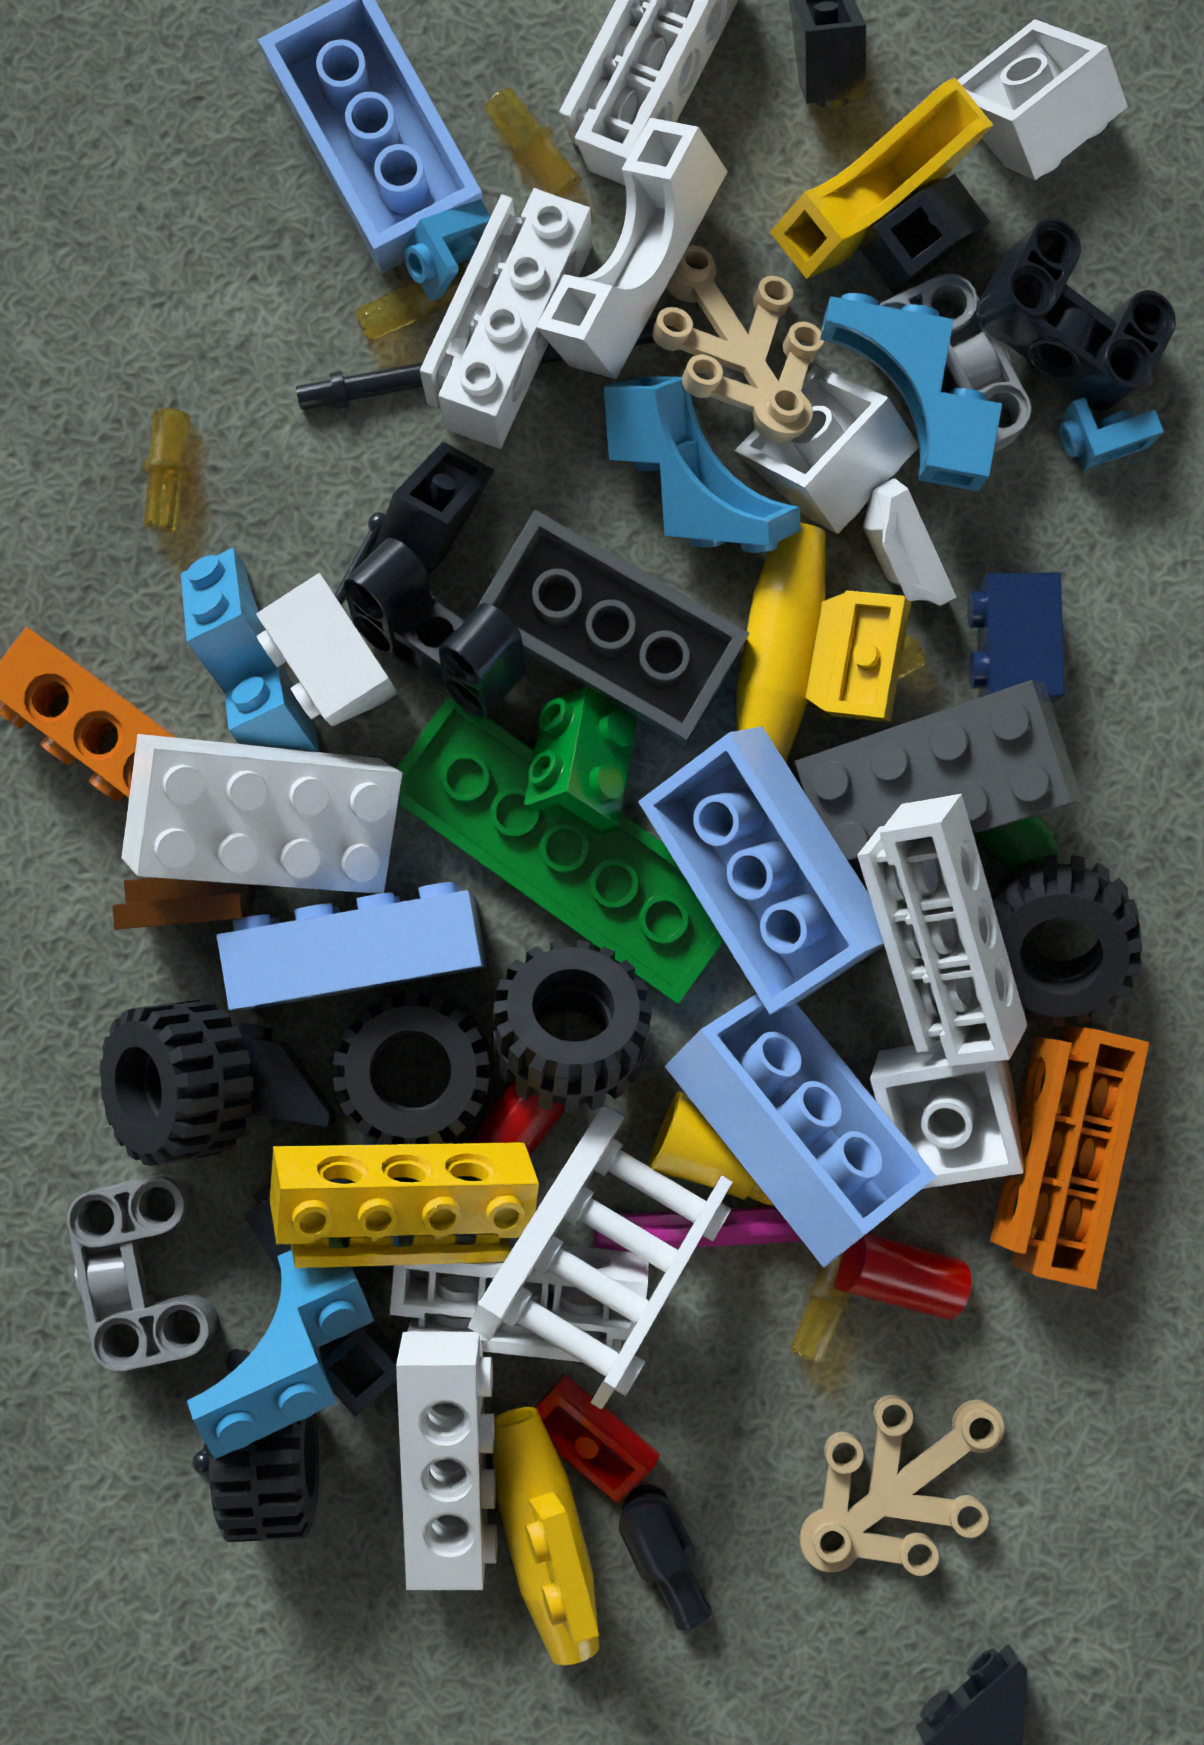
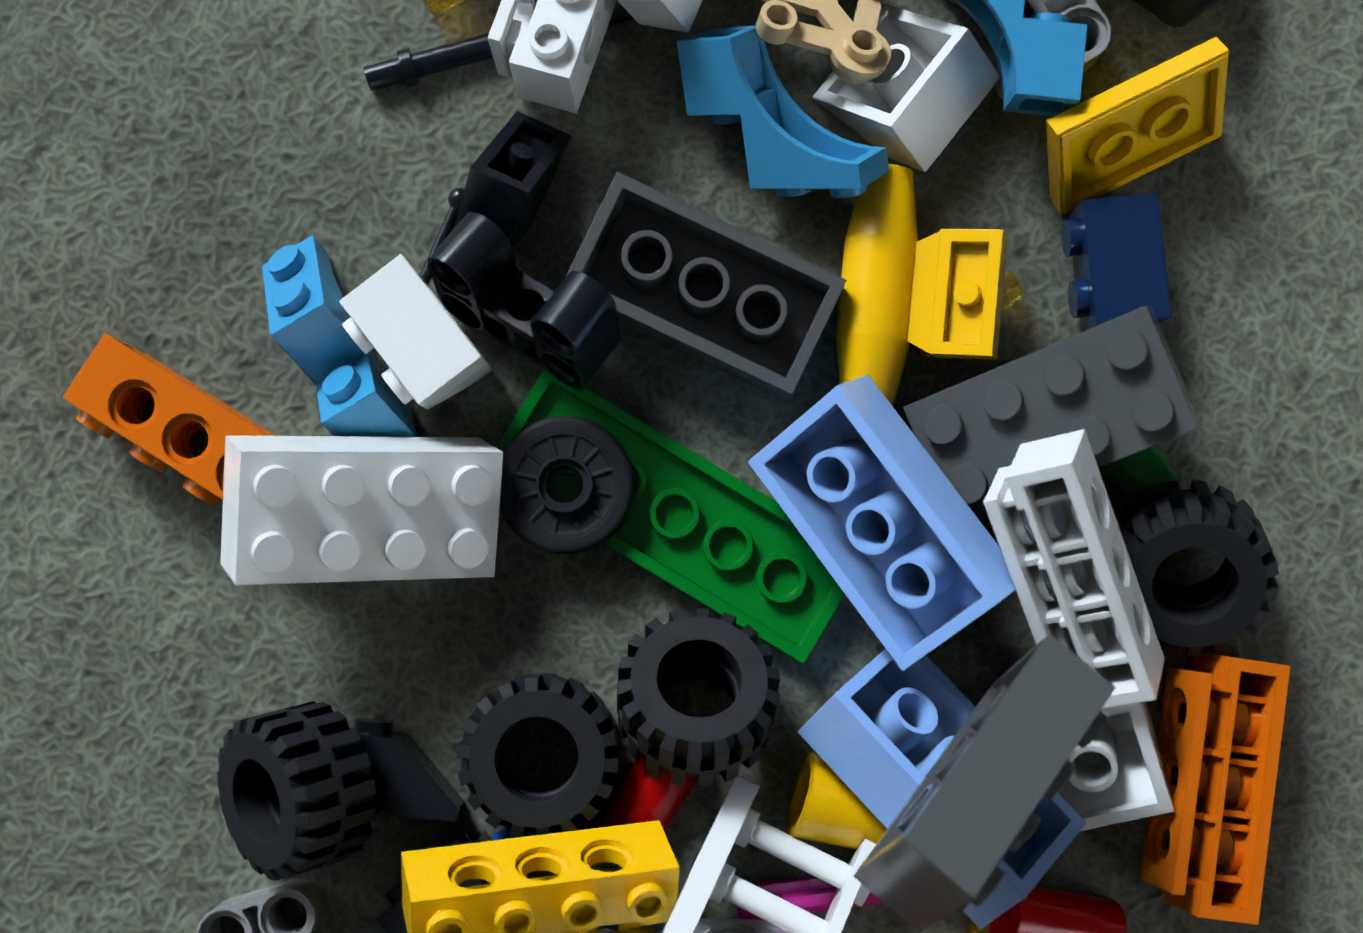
camera: 10 degrees left, 0 degrees up
(165, 468) = (238, 160): clear yellow axle -> none
(181, 901) = (284, 606): reddish brown slope -> none
(351, 950) = (464, 640): light blue brick -> none
(498, 820) = (605, 491): none -> black wheel
(581, 757) = (685, 421): green bracket -> none
(837, 1123) = (986, 787): none -> dark grey brick
(905, 545) = (995, 177): white slope -> none
(1048, 505) = (1137, 125): none -> yellow tile
(1116, 437) = (1161, 43): dark azure bracket -> none

